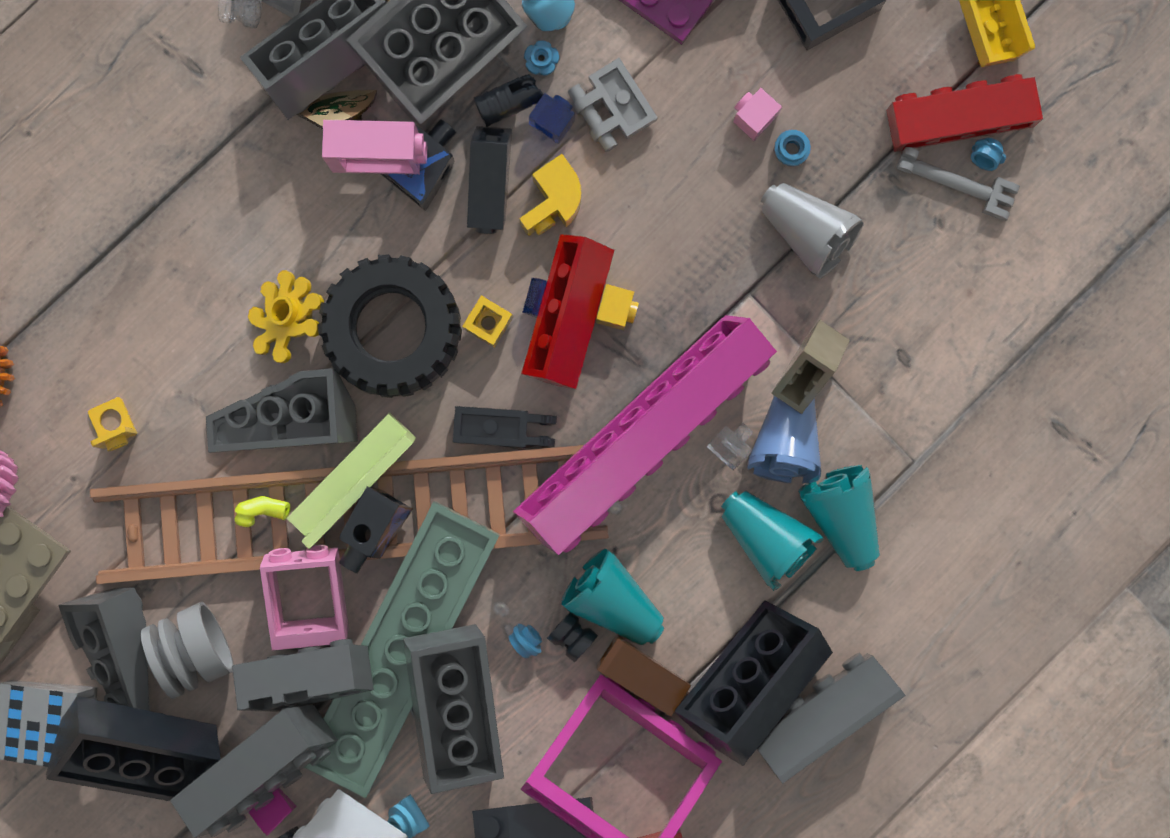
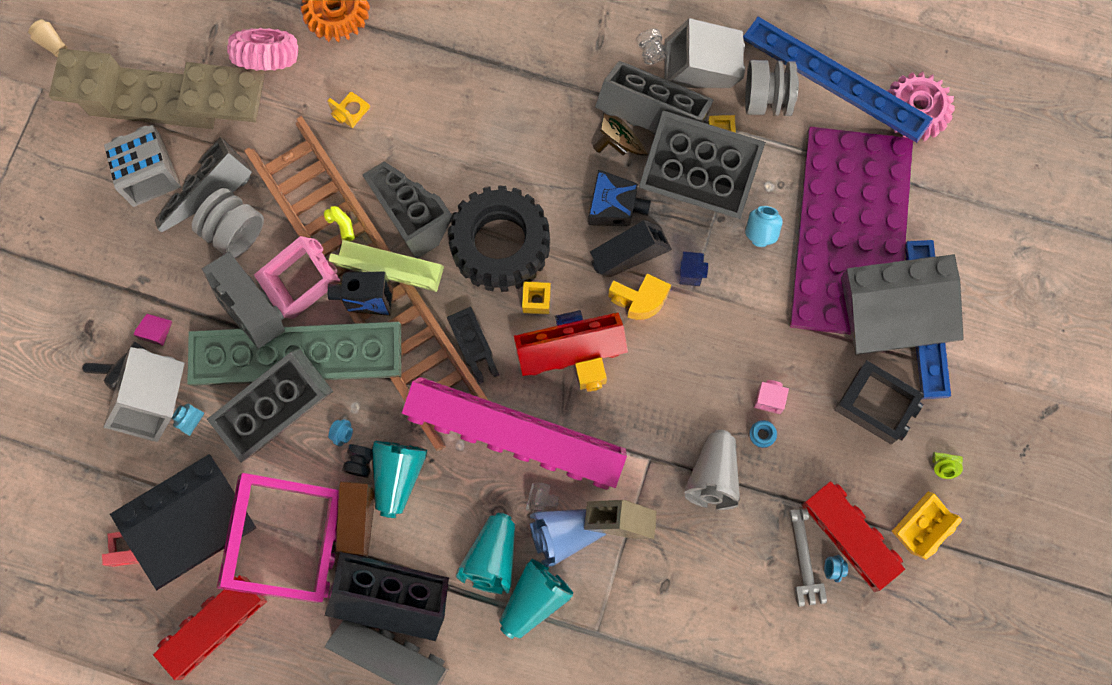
camera: 70 degrees right, 10 degrees down
(131, 749) = (146, 222): black slope -> none
(254, 771) = (169, 302): dark grey brick -> none
(286, 314) = (472, 173): yellow animal -> none
(373, 147) = (605, 162): bright pink window -> none
(508, 99) = (687, 235): black hinge -> none
(543, 67) = (726, 249): dark azure plate -> none
(622, 99) = (730, 306): light grey plate -> none

